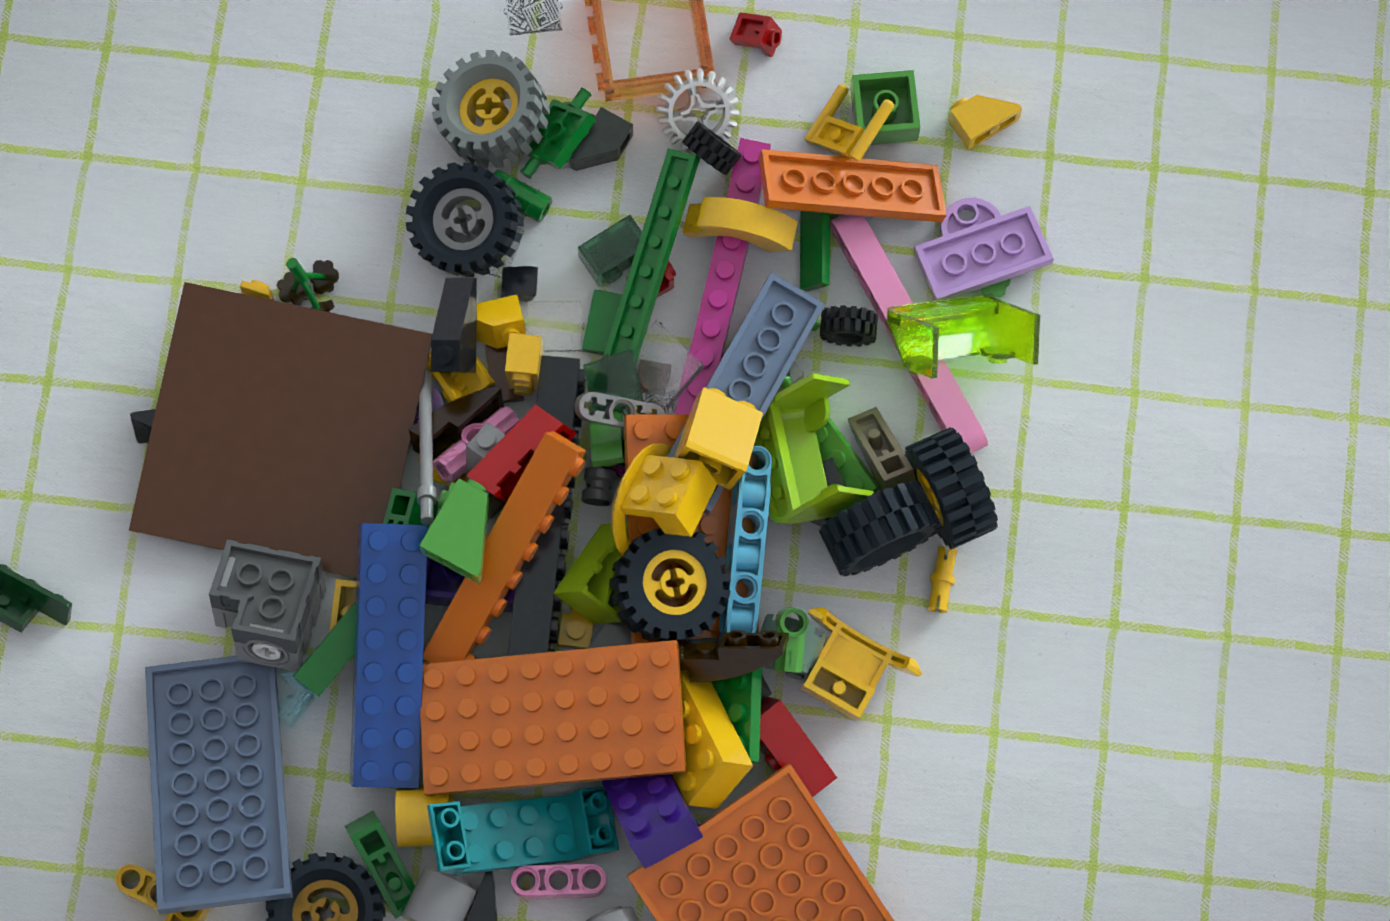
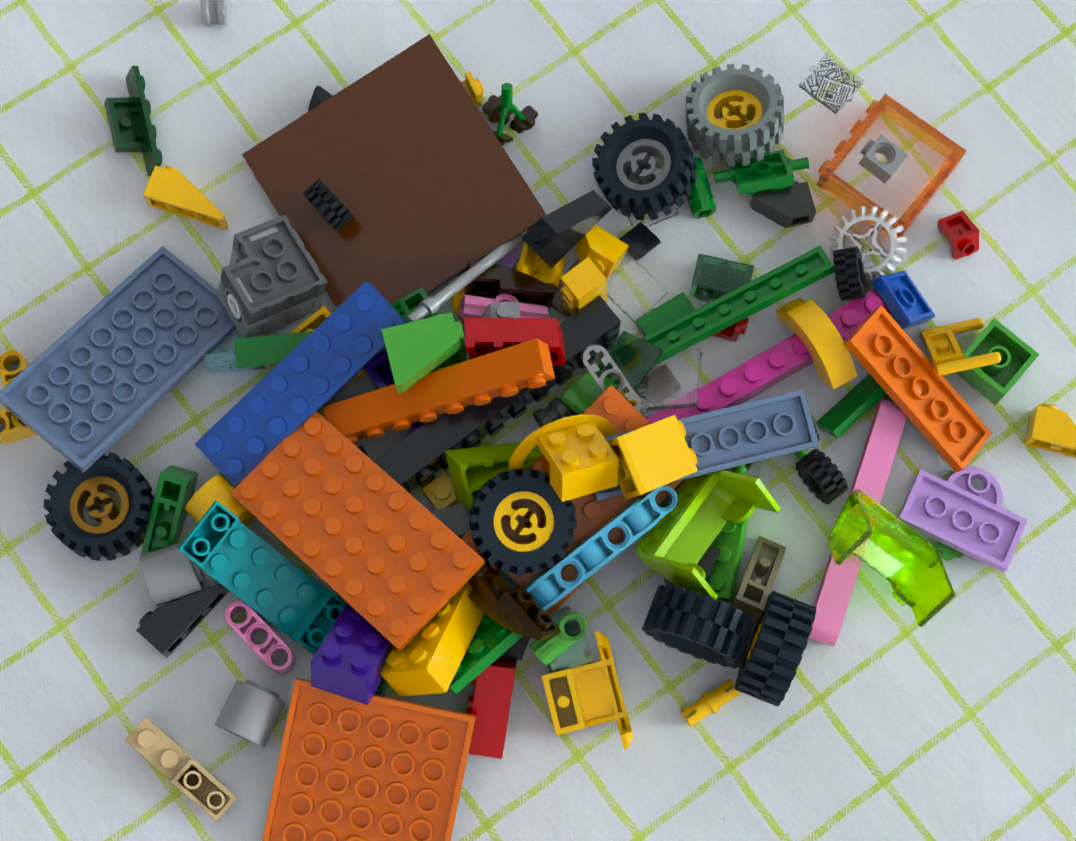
camera: 45 degrees right, 0 degrees up
(114, 613) = (176, 194): none -> yellow slope
(251, 498) = (328, 205): none -> black tyre
(650, 22) = (893, 154): none -> light grey brick
(768, 127) = (903, 299): none -> blue tile

